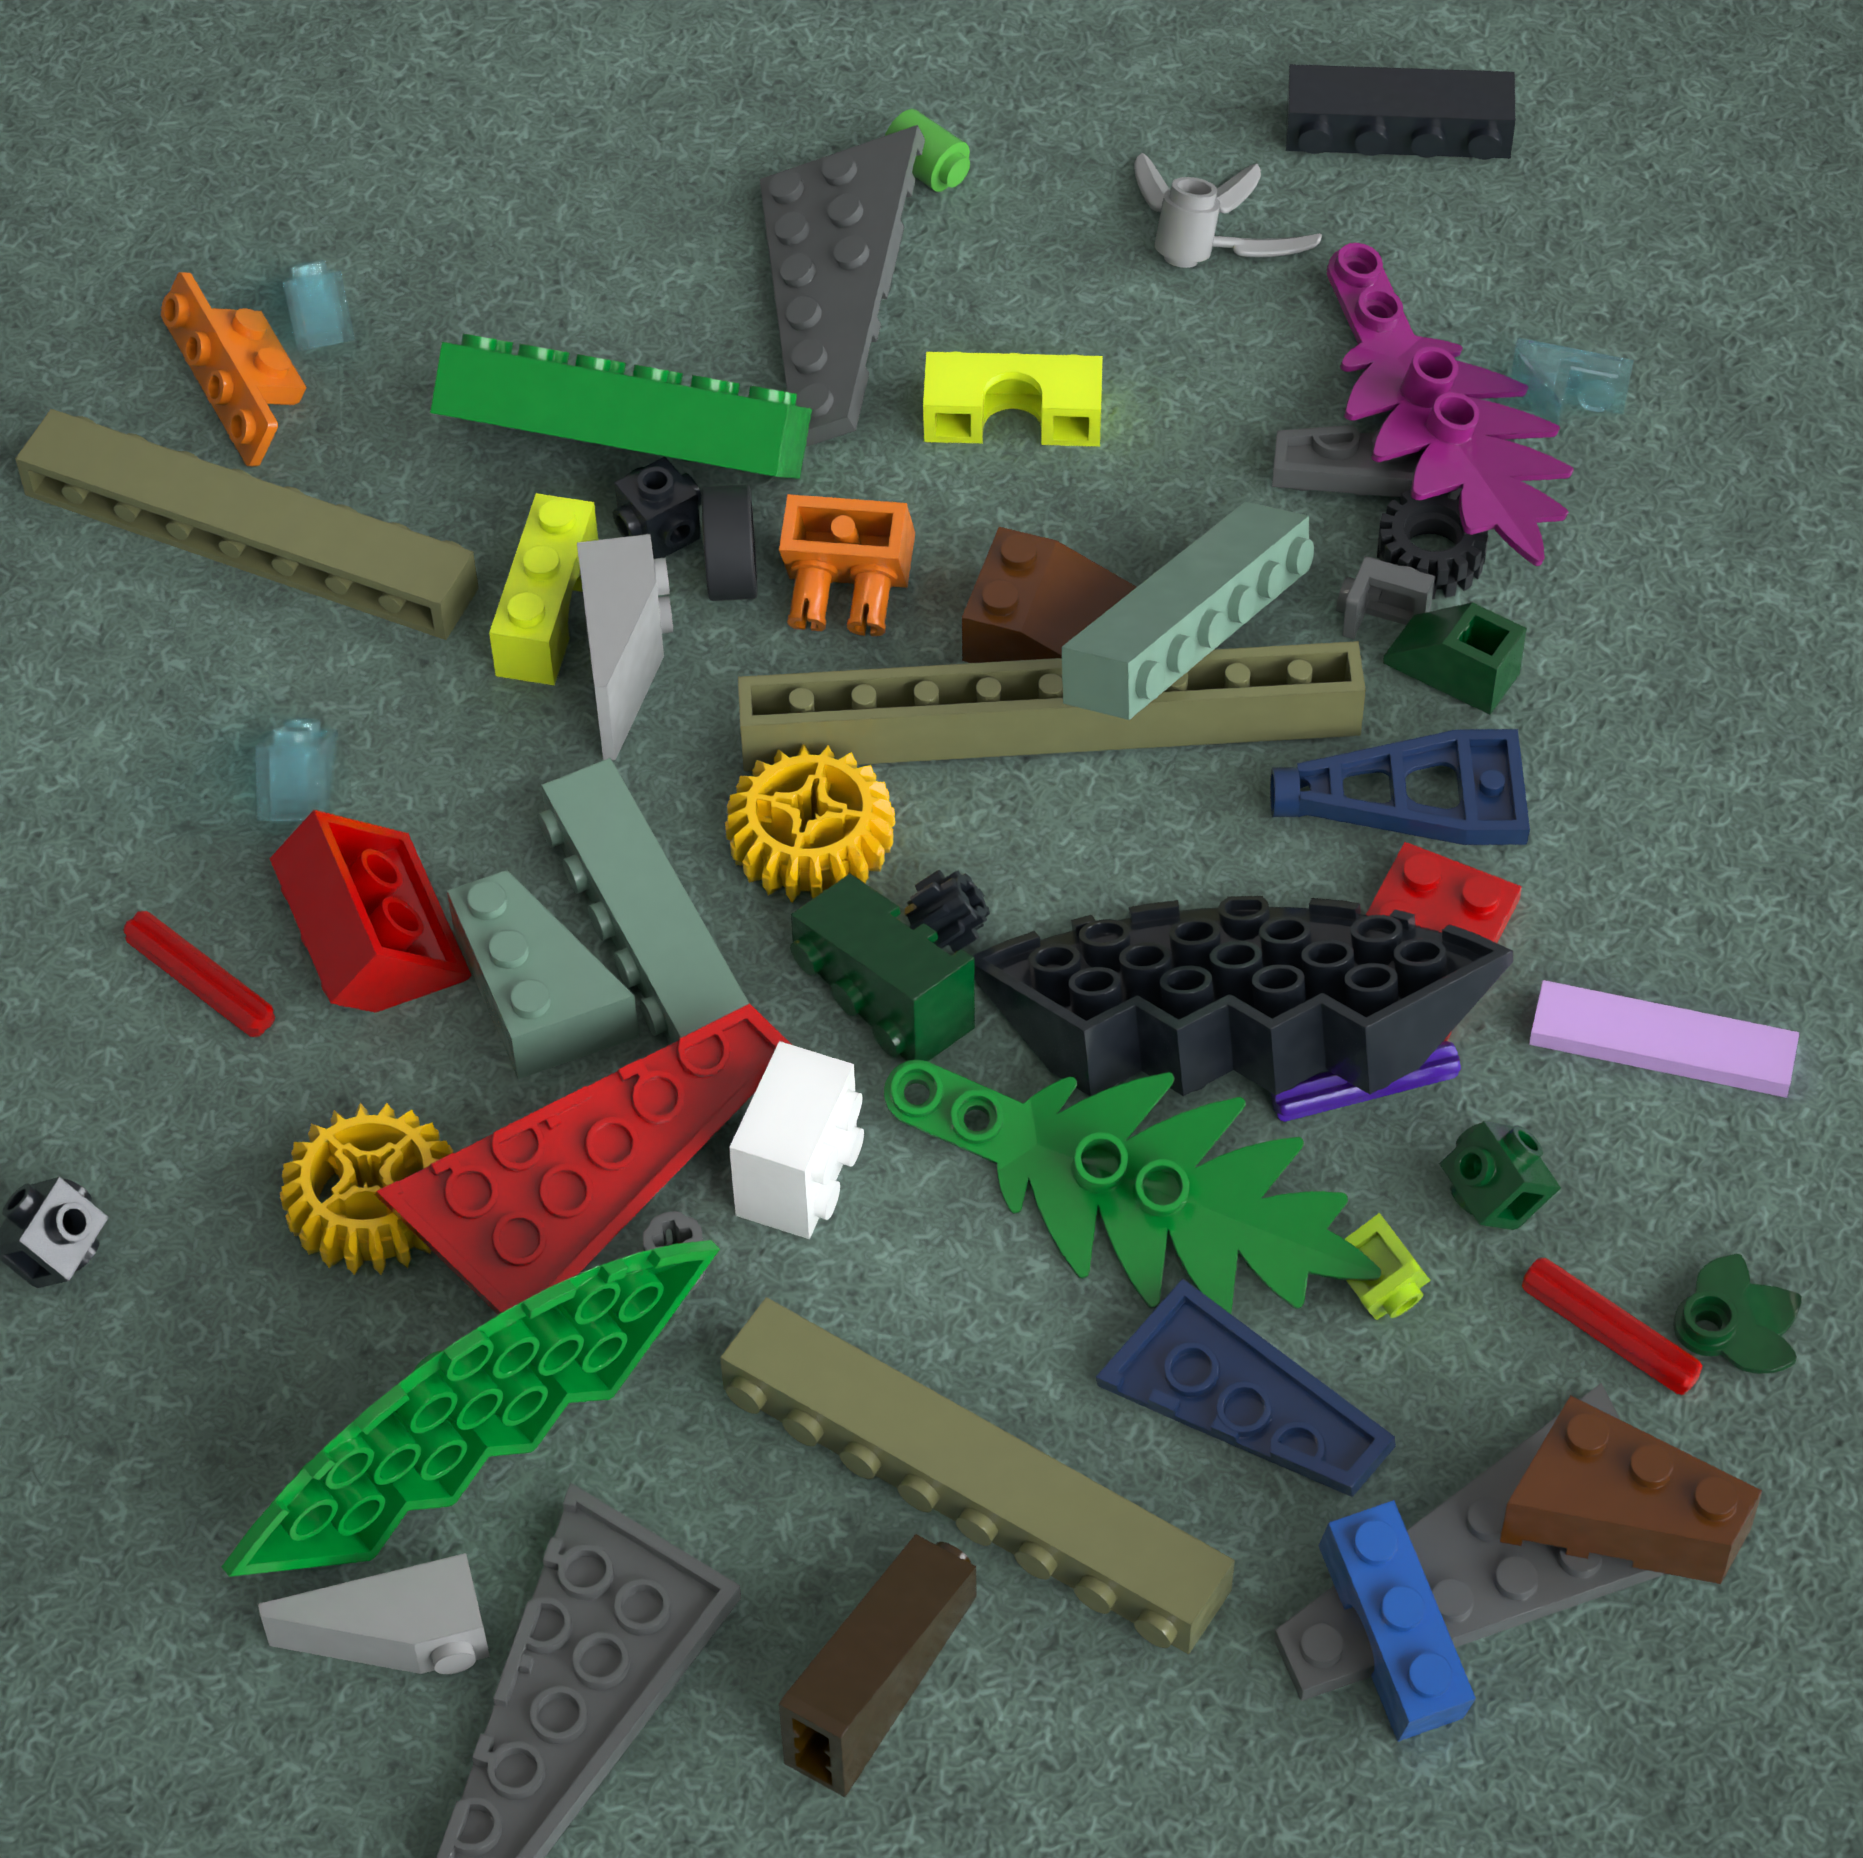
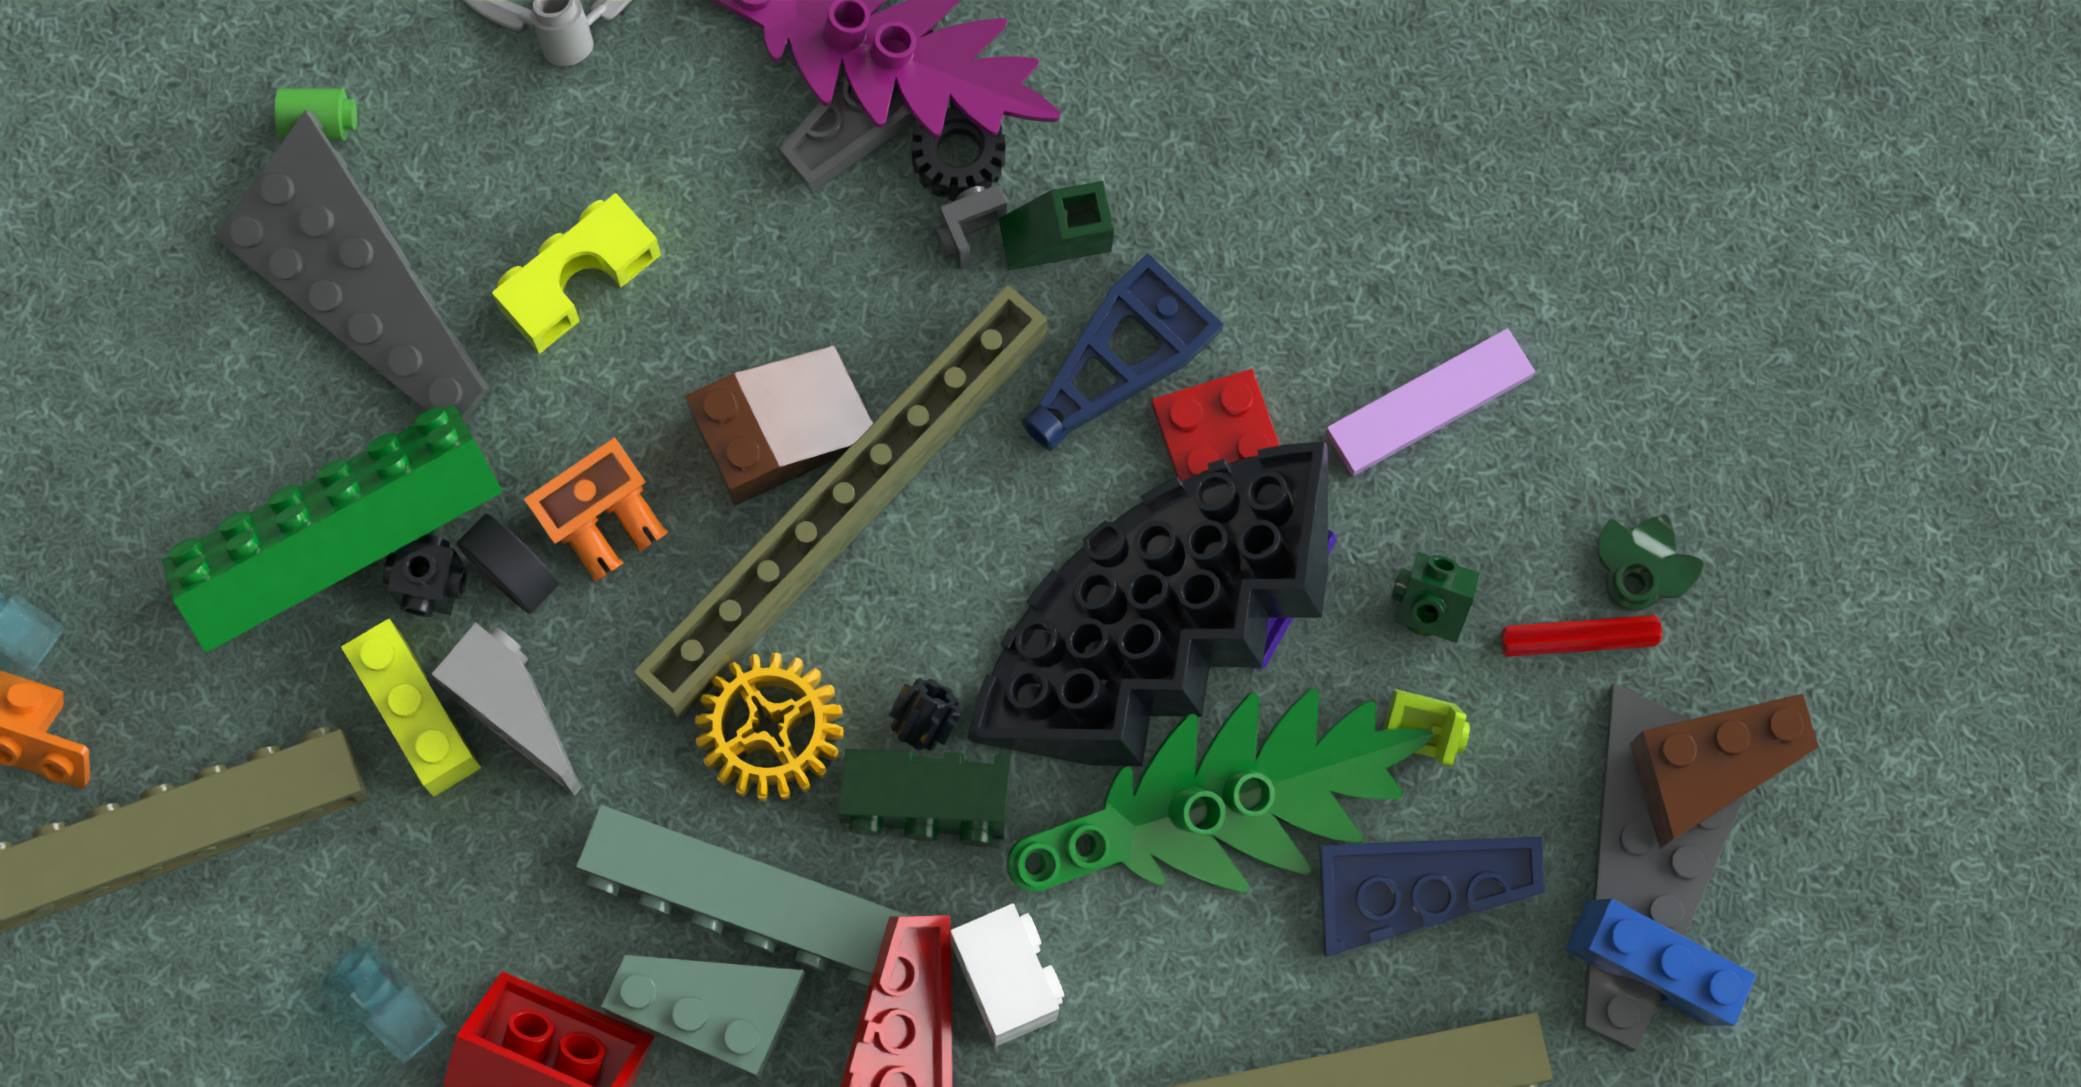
camera: 50 degrees left, 20 degrees up
(1185, 610) = (883, 360): sand green brick -> none

